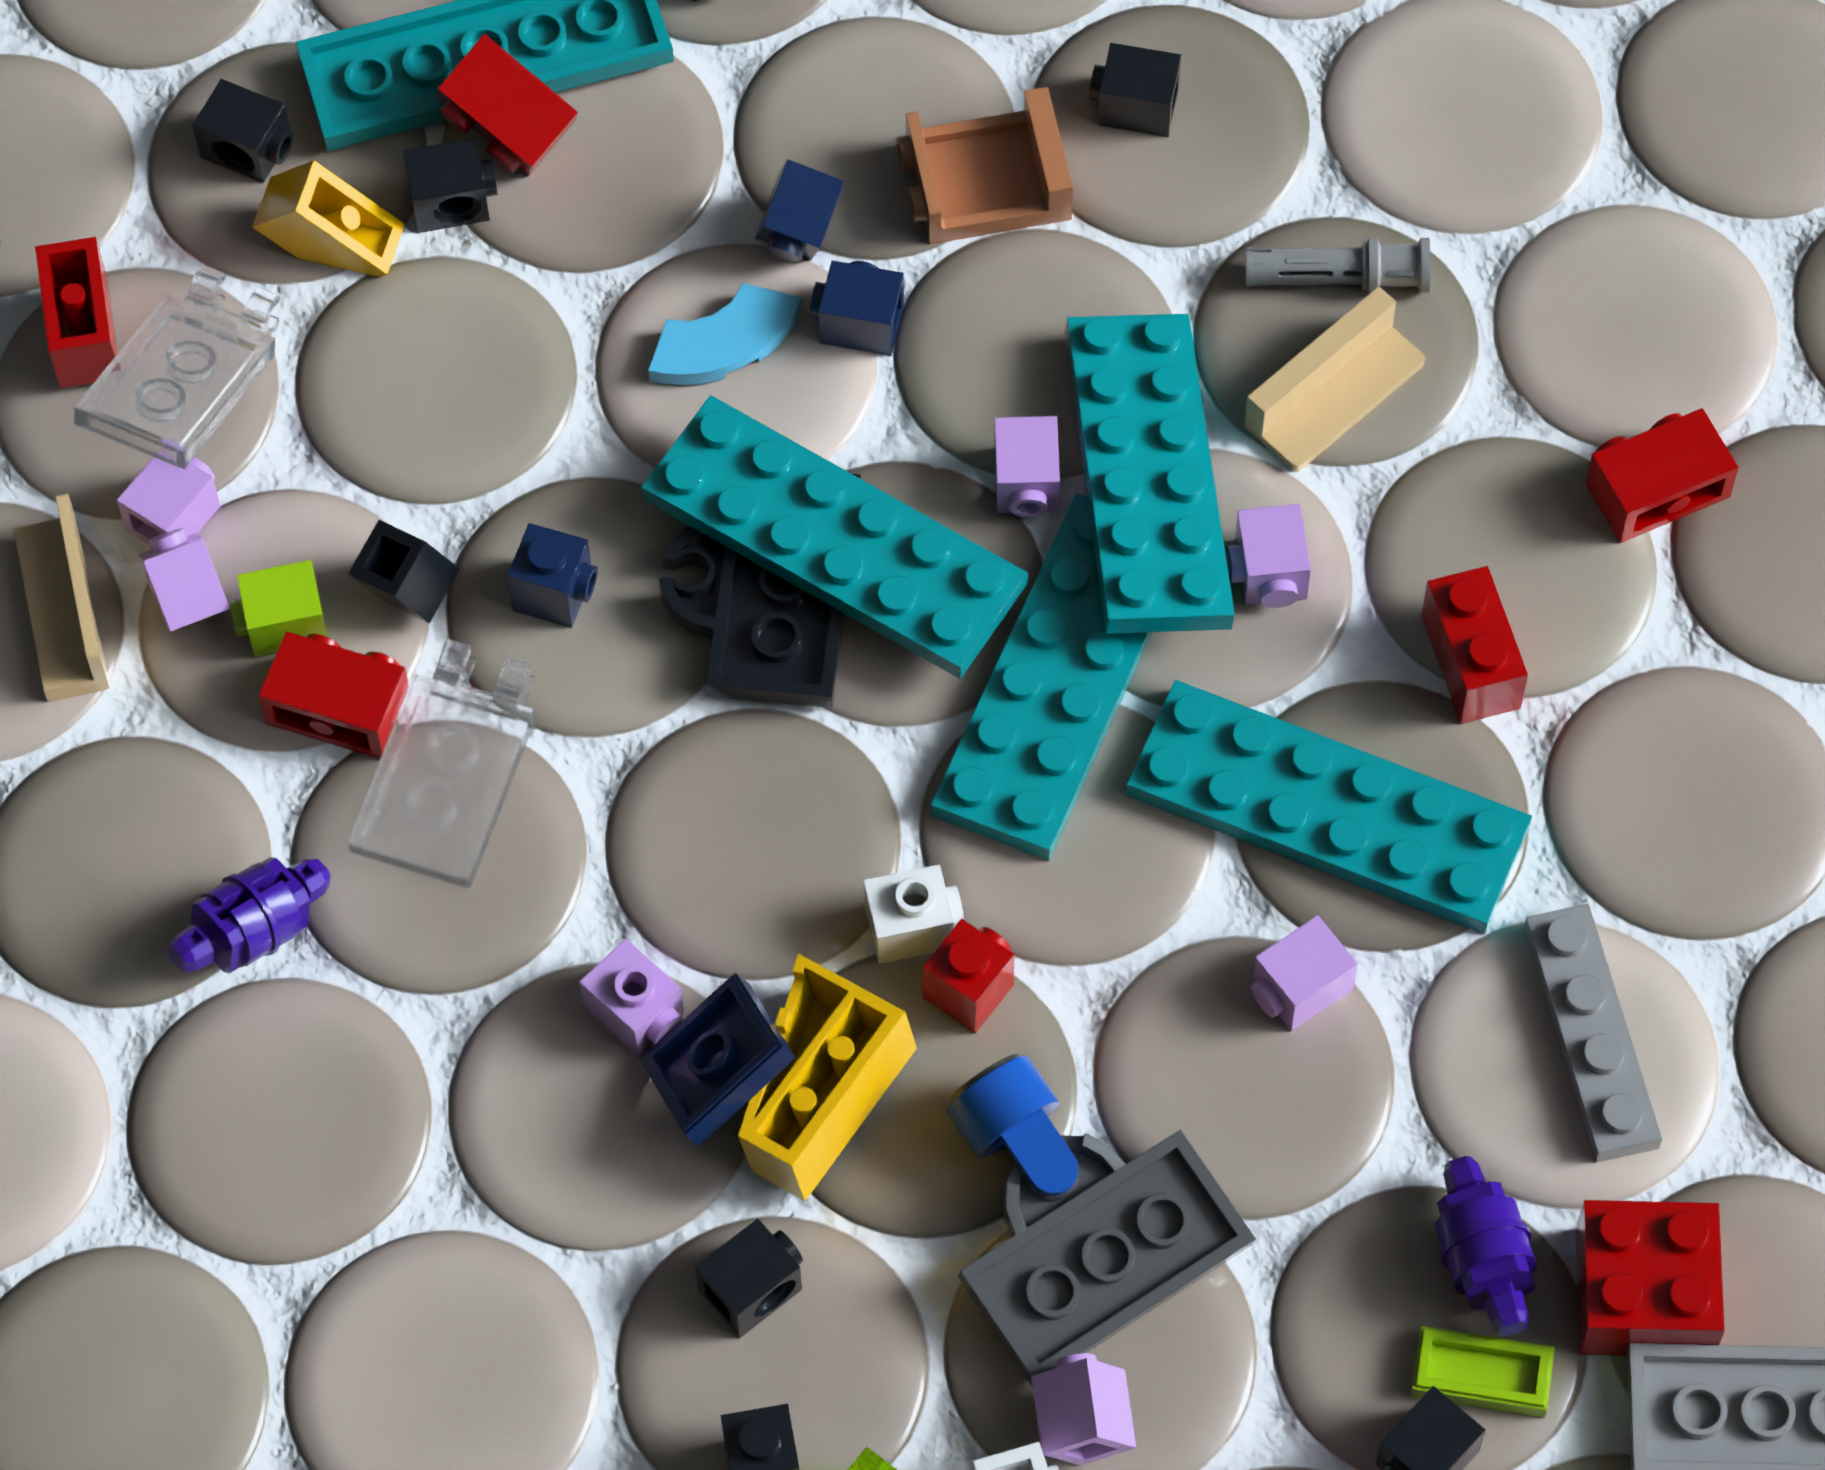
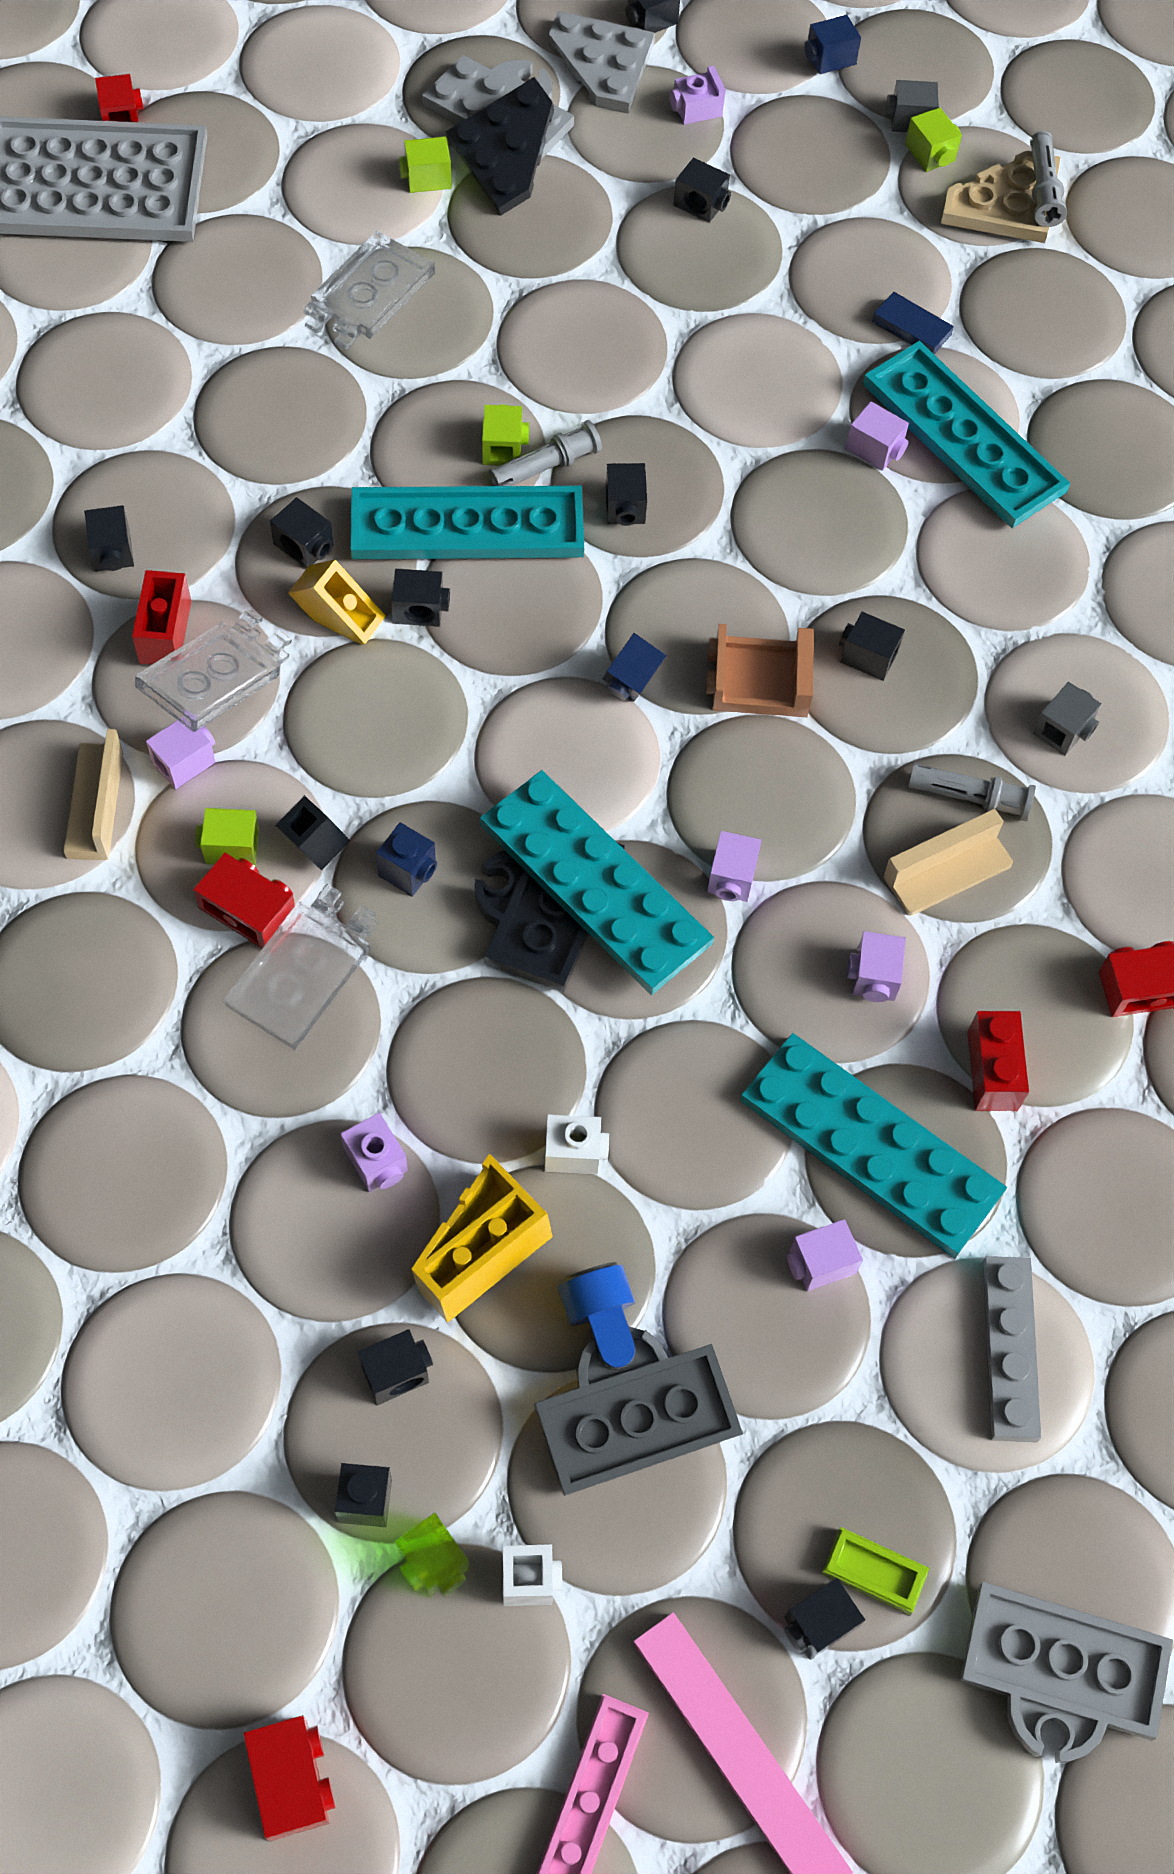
camera: 10 degrees right, 0 degrees up
(182, 578) = (171, 801): lavender brick -> none
(249, 915) = (143, 1031): dark purple piece -> none
(504, 106) = (467, 557): red brick -> none
(717, 1059) = (415, 1211): dark blue tile -> none
(725, 341) = (564, 738): medium azure tile -> none
(859, 307) = (655, 738): dark blue brick -> none
(969, 974) = (601, 1196): red brick -> none
(1043, 704) = (718, 1011): teal plate -> none
(1083, 1410) = (591, 1525): lavender brick -> none
(1148, 474) = (811, 894): teal plate -> none
(1451, 127) = (1068, 718): none -> dark grey brick
(1485, 1246) = (900, 1483): dark purple piece -> none
(1648, 1275) = (1008, 1536): red brick -> none

